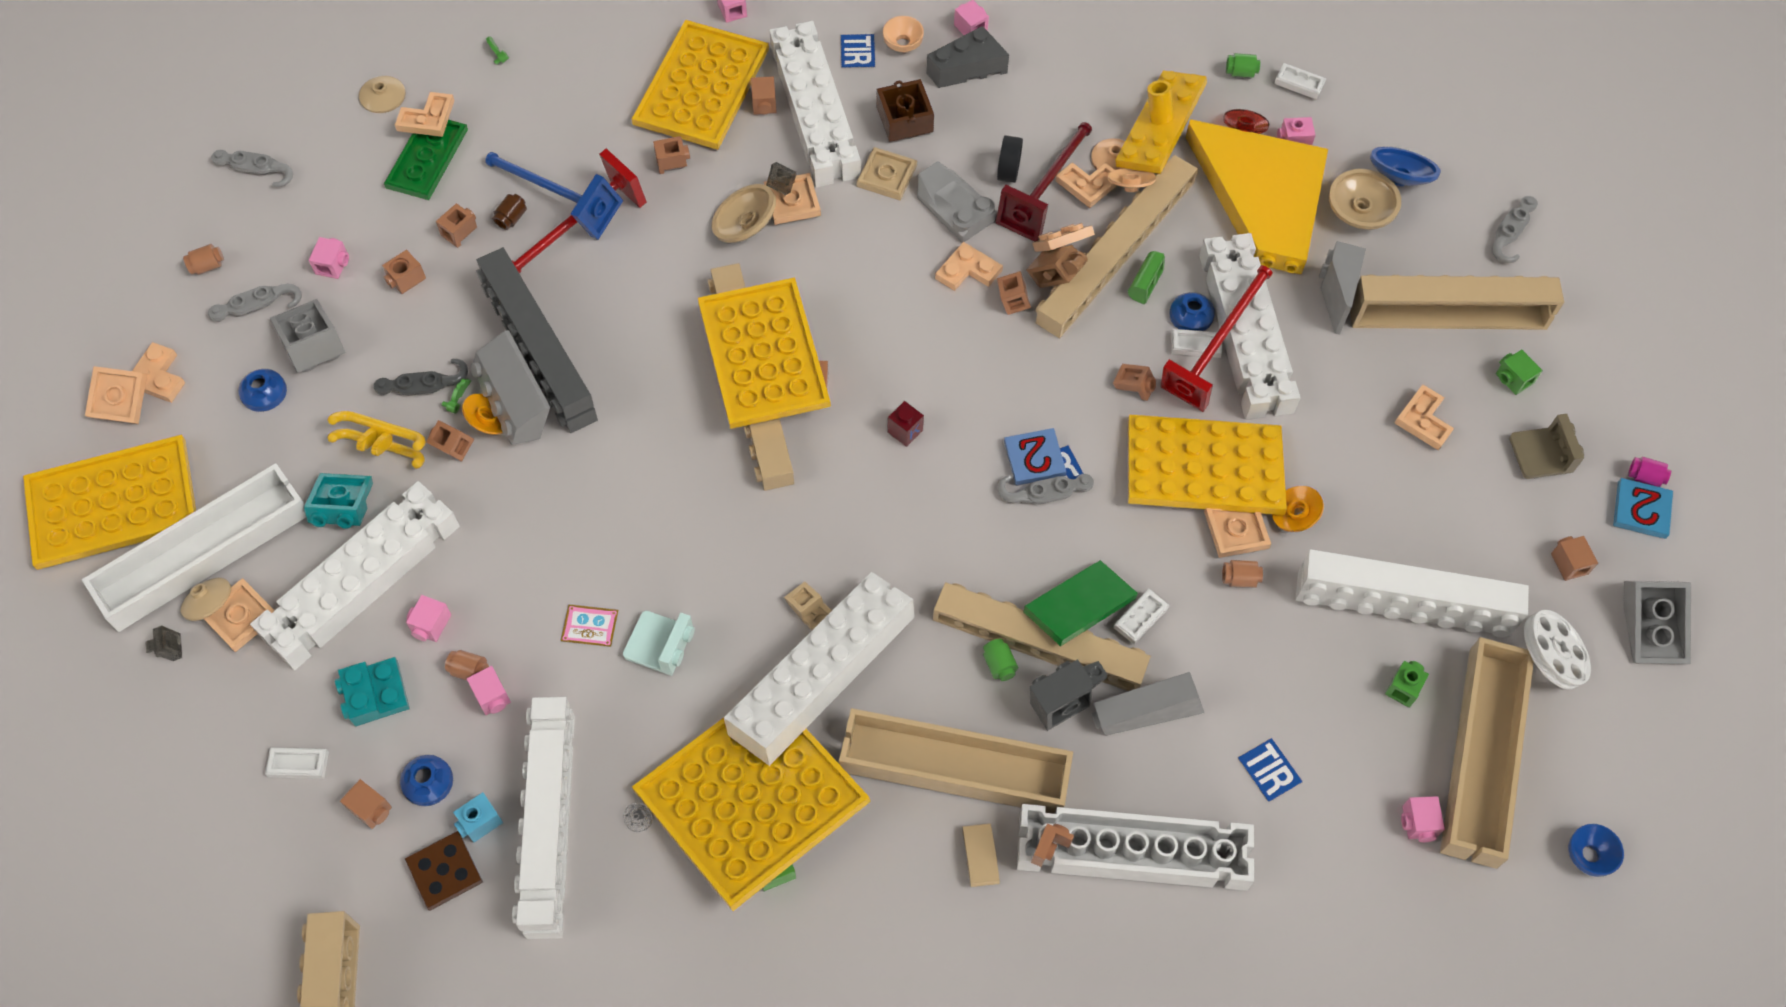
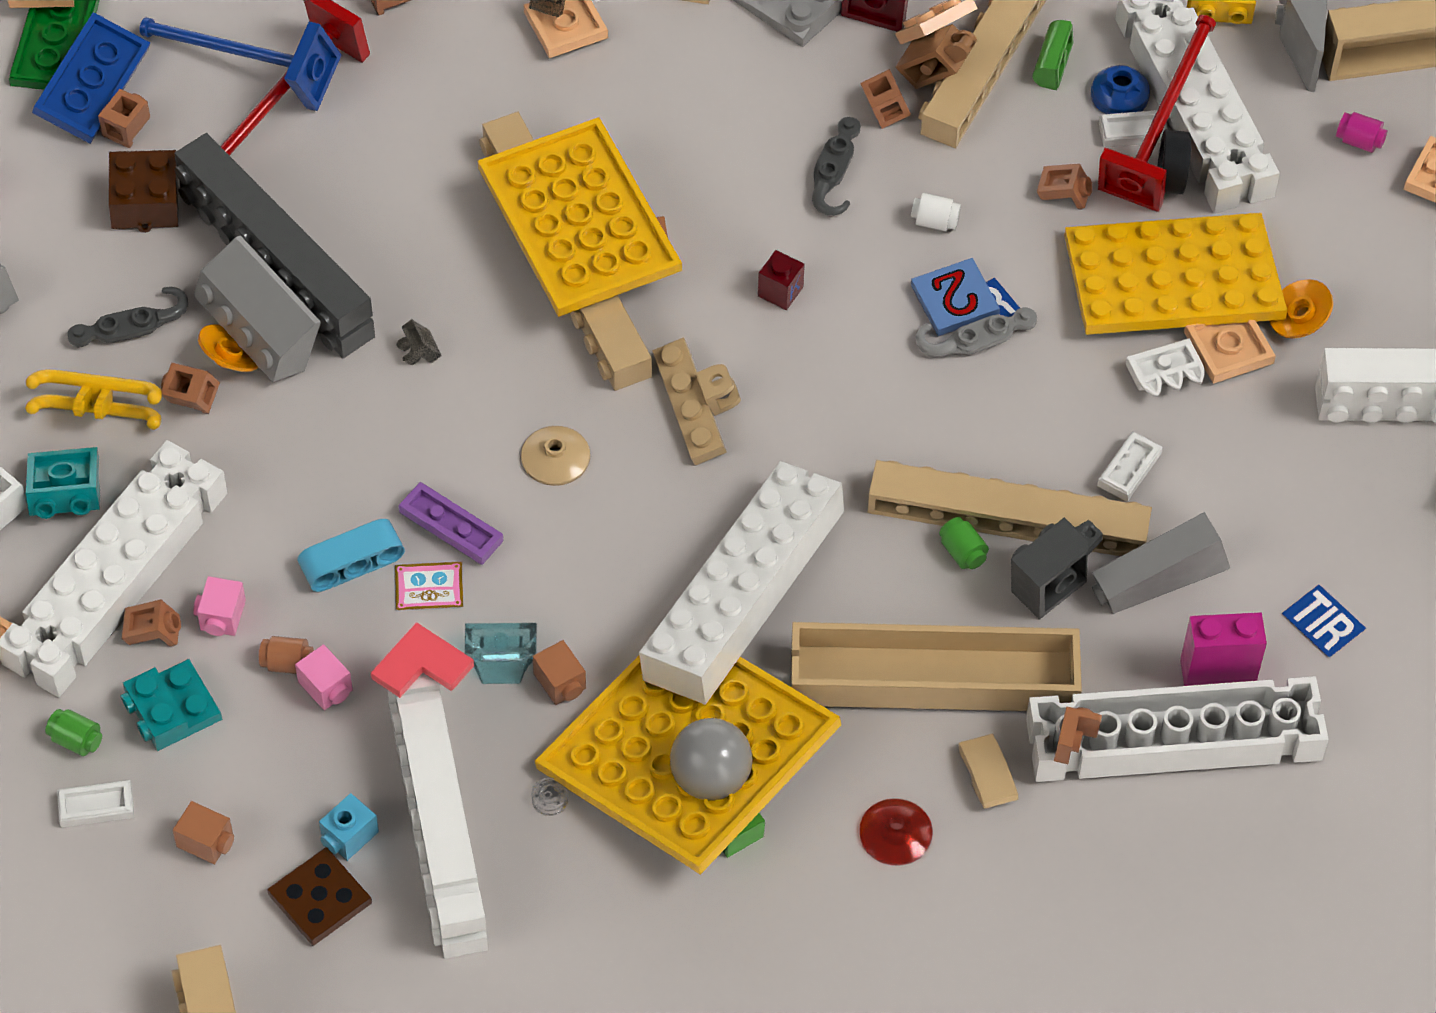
camera: 10 degrees left, 5 degrees down
(294, 702) = (74, 732): none -> bright green brick
(374, 623) = (151, 622): none -> nougat bracket
(403, 272) = (69, 187): nougat brick -> none
(434, 789) = (271, 810): blue piece -> none
(446, 182) = (90, 76): none -> blue plate
(452, 406) = (179, 346): bright green piece -> none
(453, 282) = (143, 189): none -> reddish brown brick
(509, 211) = (190, 90): reddish brown brick -> none
(535, 592) = (350, 555): none -> medium azure beam
(554, 691) = (421, 653): none -> coral tile
(616, 579) = (451, 523): none -> medium lavender plate
(627, 431) = (420, 341): none -> clear smoke tile
(628, 689) = (501, 650): none -> clear light blue slope
(659, 641) = (527, 588): light aqua bracket -> none
(668, 716) = (559, 672): none -> nougat brick
(708, 545) = (558, 466): none -> tan dish
(744, 213) = (508, 48): tan dish -> none
(761, 816) = (711, 759): none -> light grey piece
(807, 605) = (705, 517): tan slope -> none
(821, 507) = (696, 398): none -> tan plate
(899, 906) = (896, 845): none -> clear red dish
(964, 339) = (834, 164): none -> dark grey piece
(967, 262) = (817, 69): light nougat plate -> none
(1033, 387) = (936, 212): none -> white brick
(1080, 602) = (1051, 459): green tile -> none
(1184, 538) = (1165, 365): none -> white plate
(1184, 788) = (1223, 648): none -> dark pink brick
(1222, 374) = (1175, 158): none -> black tyre
(1242, 573) = (1246, 396): nougat brick -> none
(1370, 372) = (1361, 131): none -> dark pink brick

